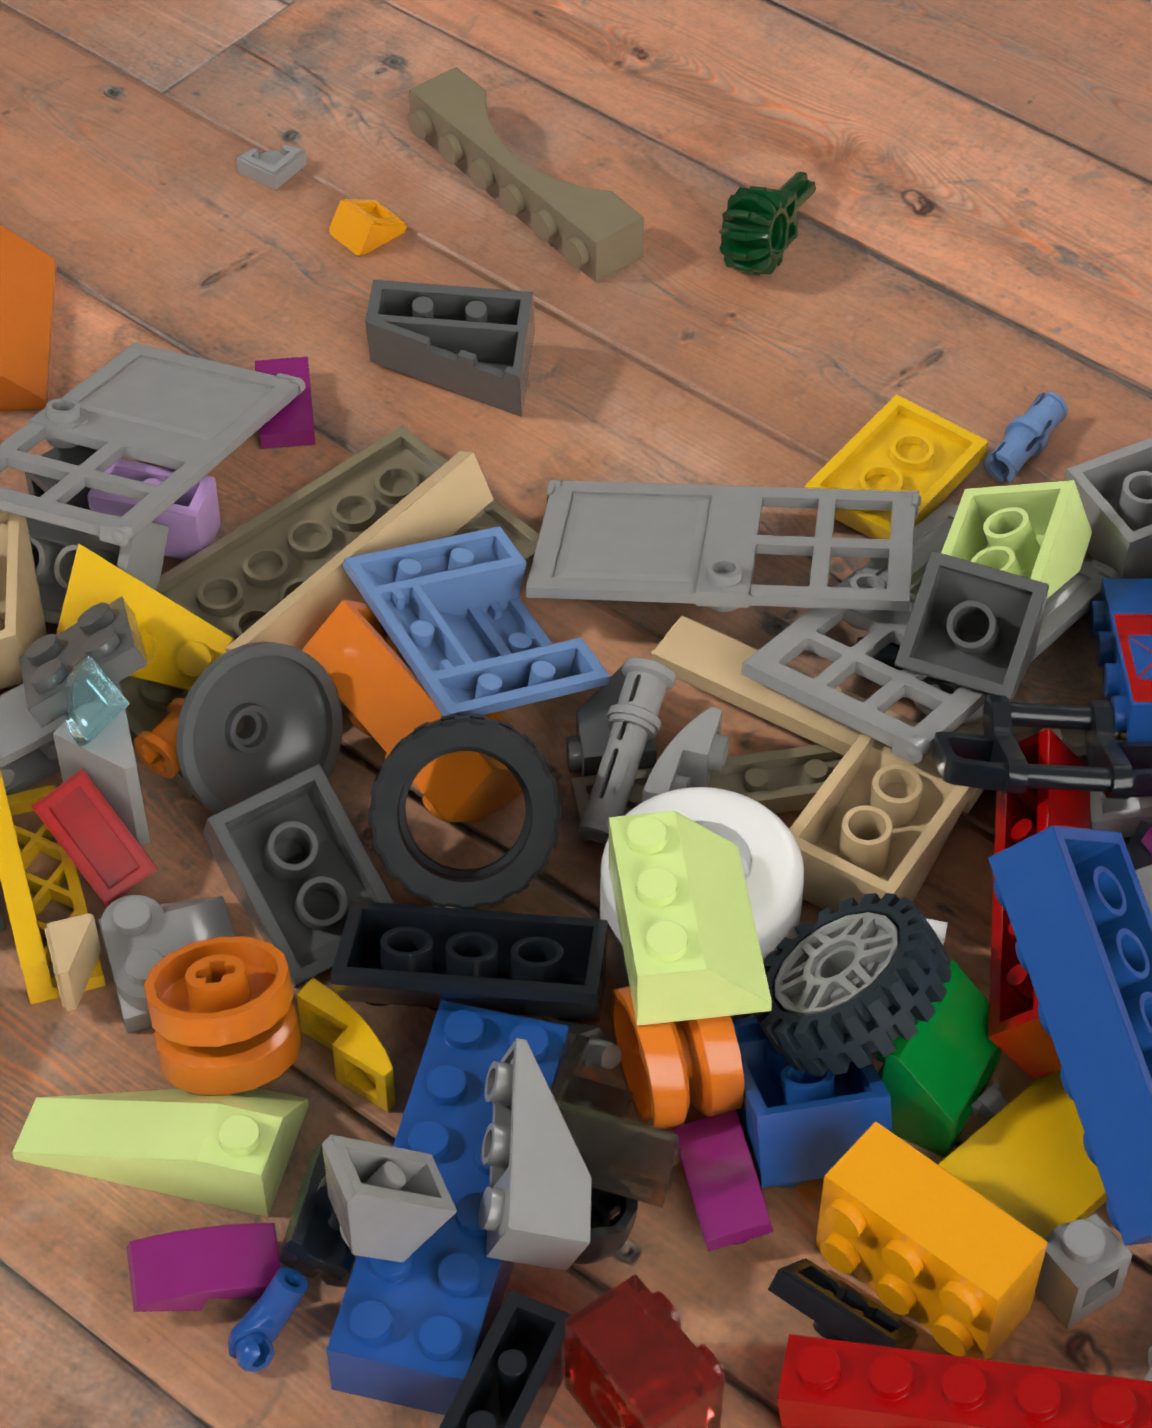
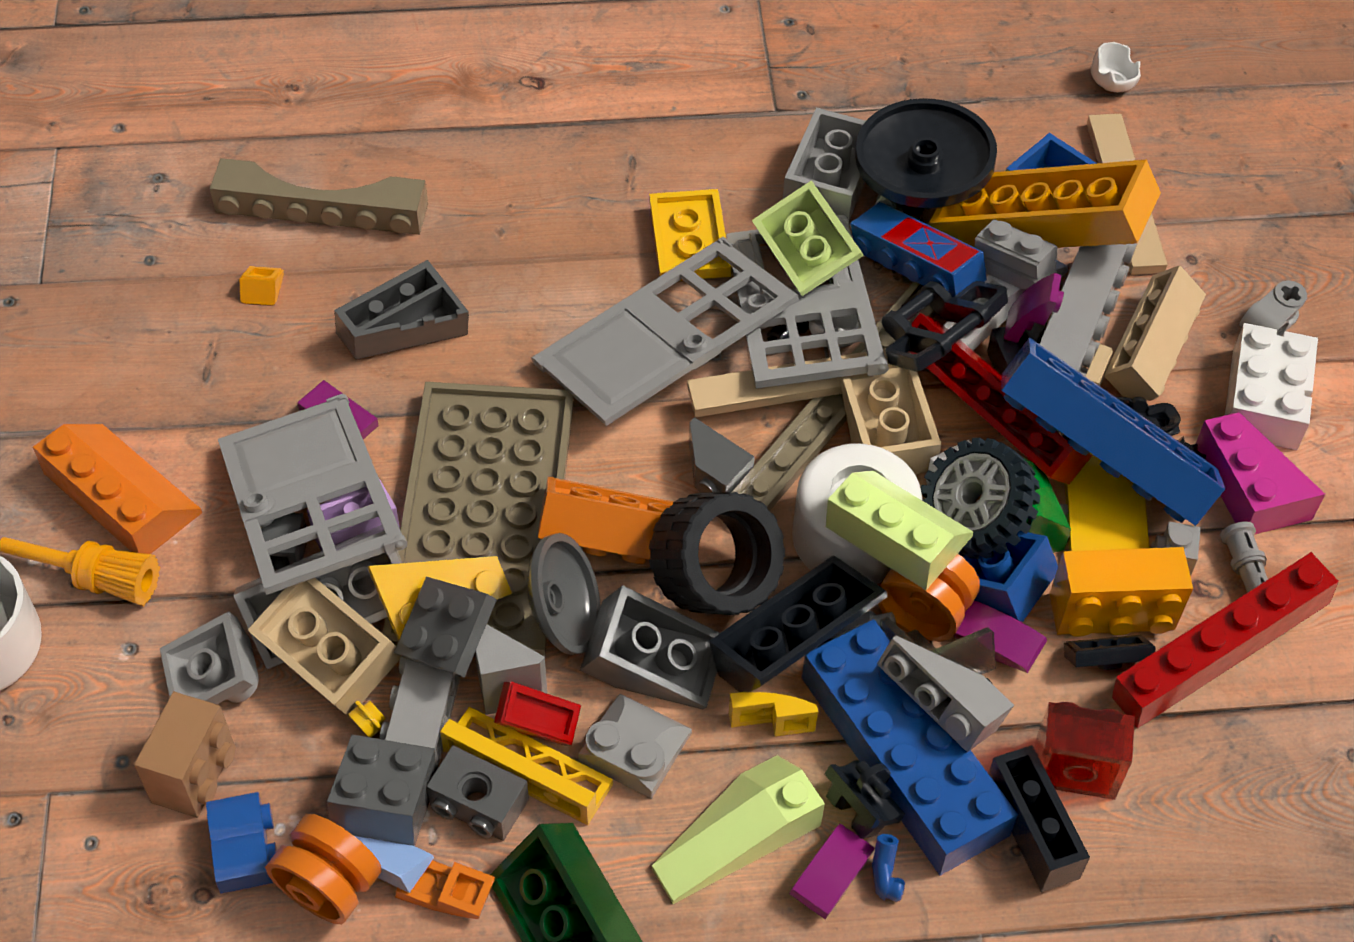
camera: 45 degrees left, 5 degrees up
(74, 953) = (599, 779): tan slope -> none
(91, 701) = (493, 639): clear light blue tile -> none
(158, 747) = (519, 625): orange bush -> none
(223, 1015) = (712, 746): orange wheel -> none
(271, 167) = (163, 285): light grey tile -> none
(384, 1197) = (920, 761): light grey slope -> none
(426, 514) = (511, 475): tan tile -> none
(464, 627) = (602, 465): medium blue slope -> none
(632, 723) = (742, 447): light grey pin -> none
(690, 756) = (781, 465): light grey slope -> none
(762, 224) = (484, 143): dark green gear -> none
(973, 625) = (843, 286): dark grey slope -> none
(1025, 437) = (726, 175): medium blue pin -> none

